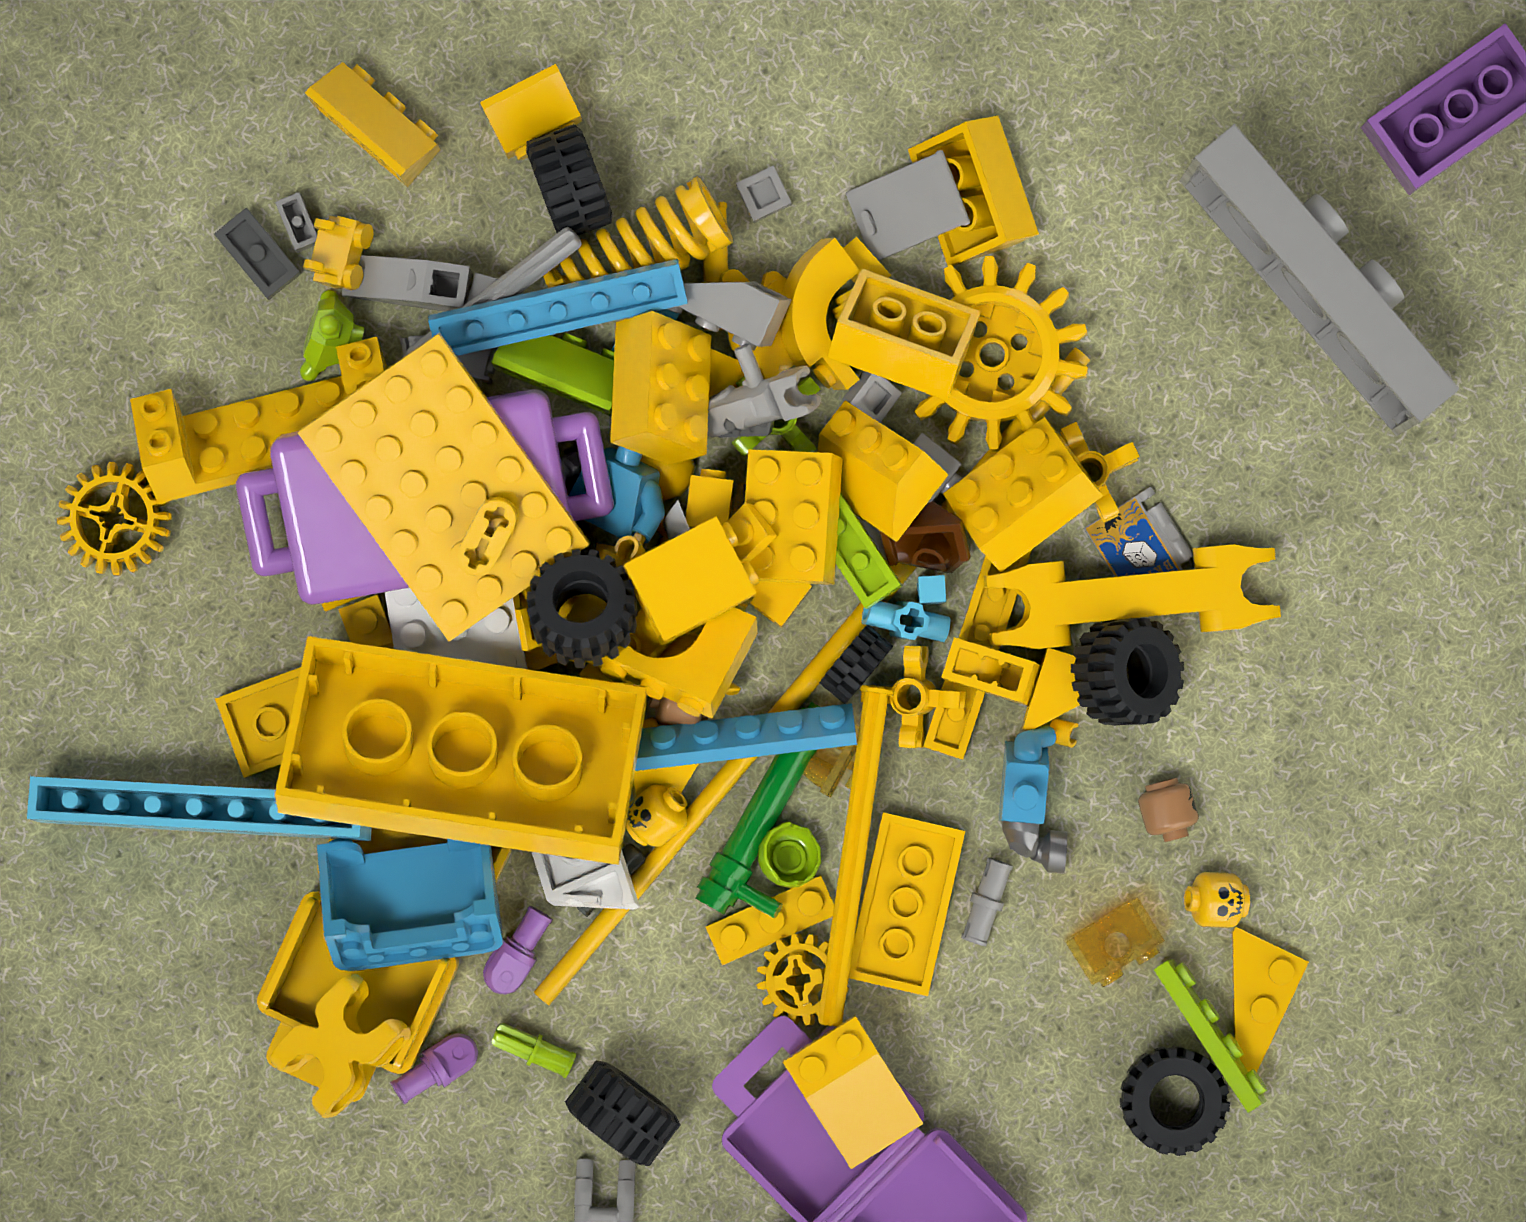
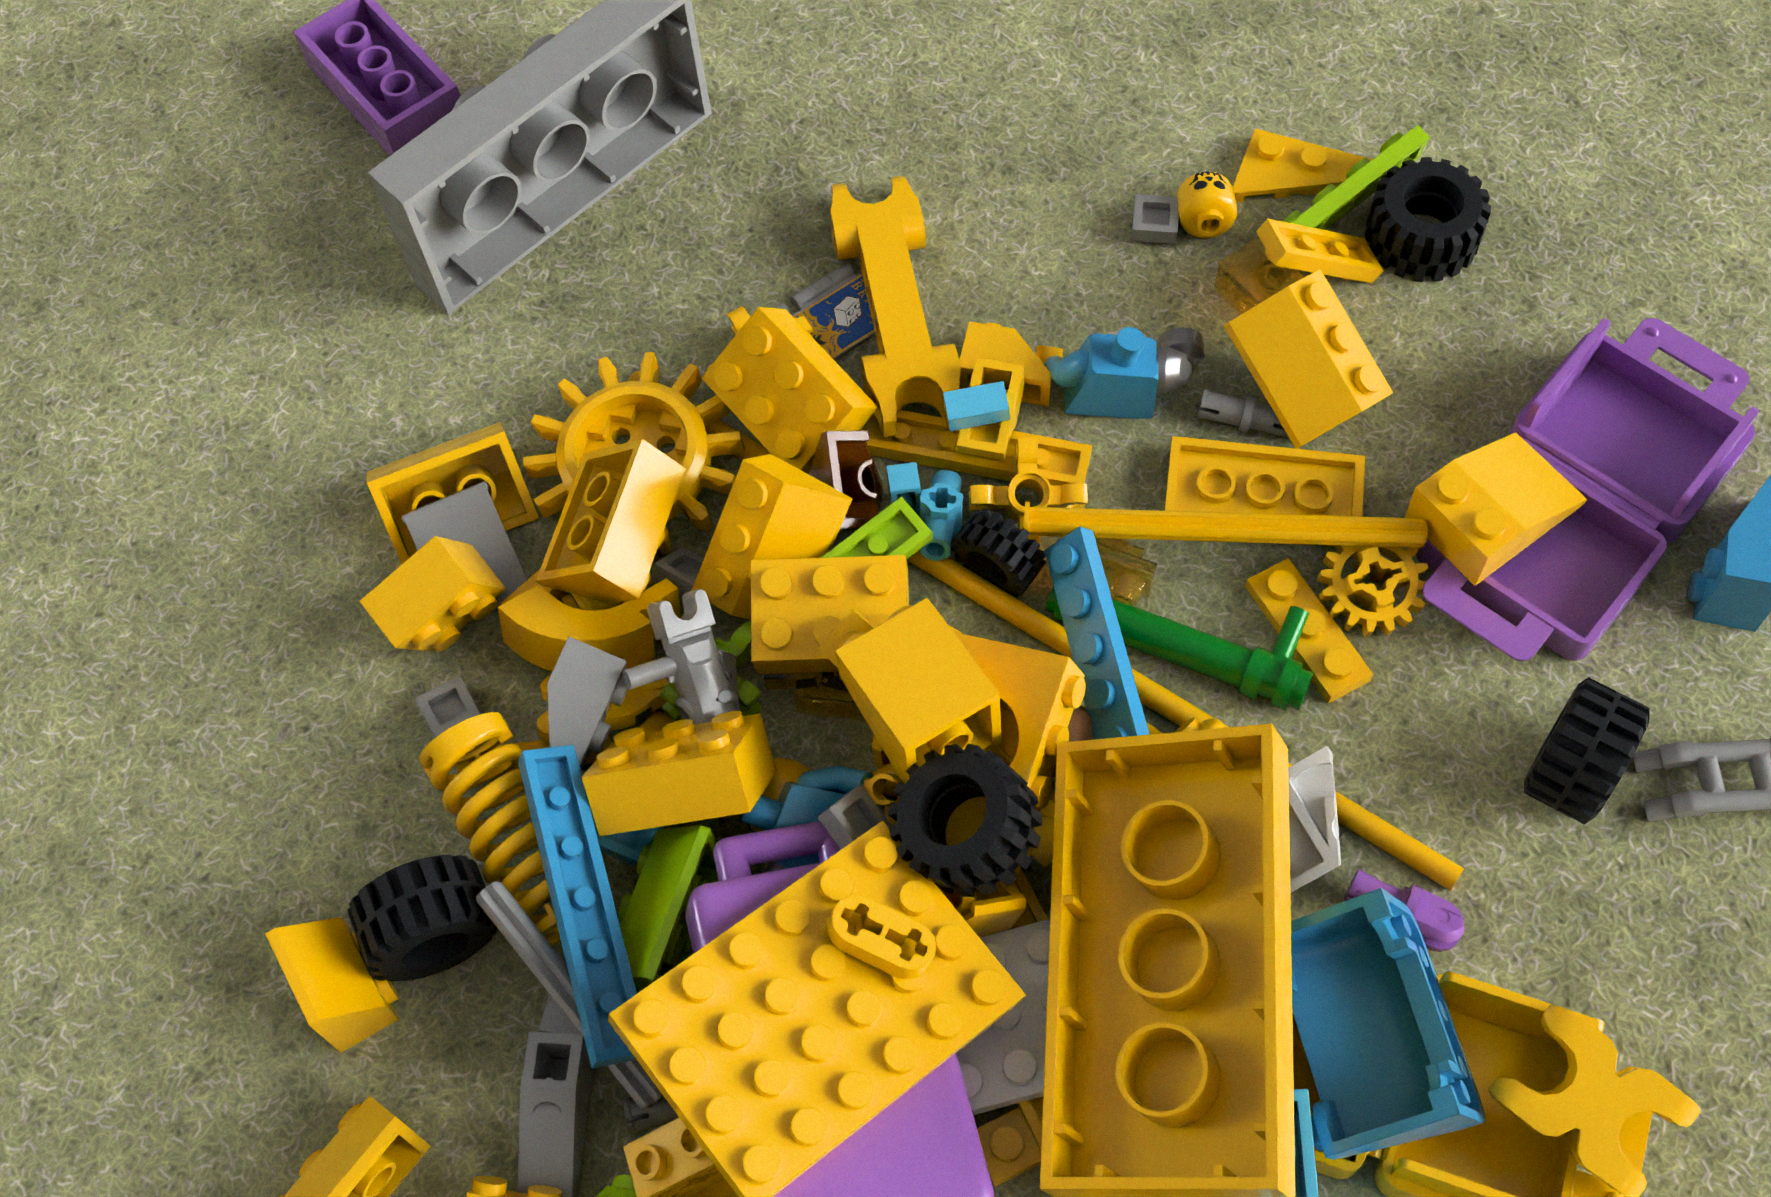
camera: 95 degrees left, 25 degrees down
(438, 1066) = (1565, 982): medium lavender arm -> none
(533, 1049) = (1524, 879): lime axle -> none
(603, 523) = (851, 816): none -> light grey plate
(675, 522) = (854, 743): white sticker -> none
(709, 497) = (820, 722): yellow brick -> none
(789, 855) = (1231, 609): lime hair -> none
(851, 184) = (434, 596): none -> yellow brick
(980, 656) = (976, 406): none -> medium azure piece
(1015, 956) = (1308, 358): none -> yellow slope
(1138, 991) = (1315, 249): none -> yellow plate
(1152, 668) = (976, 287): black tyre -> none
(1168, 809) = (1117, 257): medium nougat head -> none
(1210, 850) = (1155, 219): none -> light grey plate

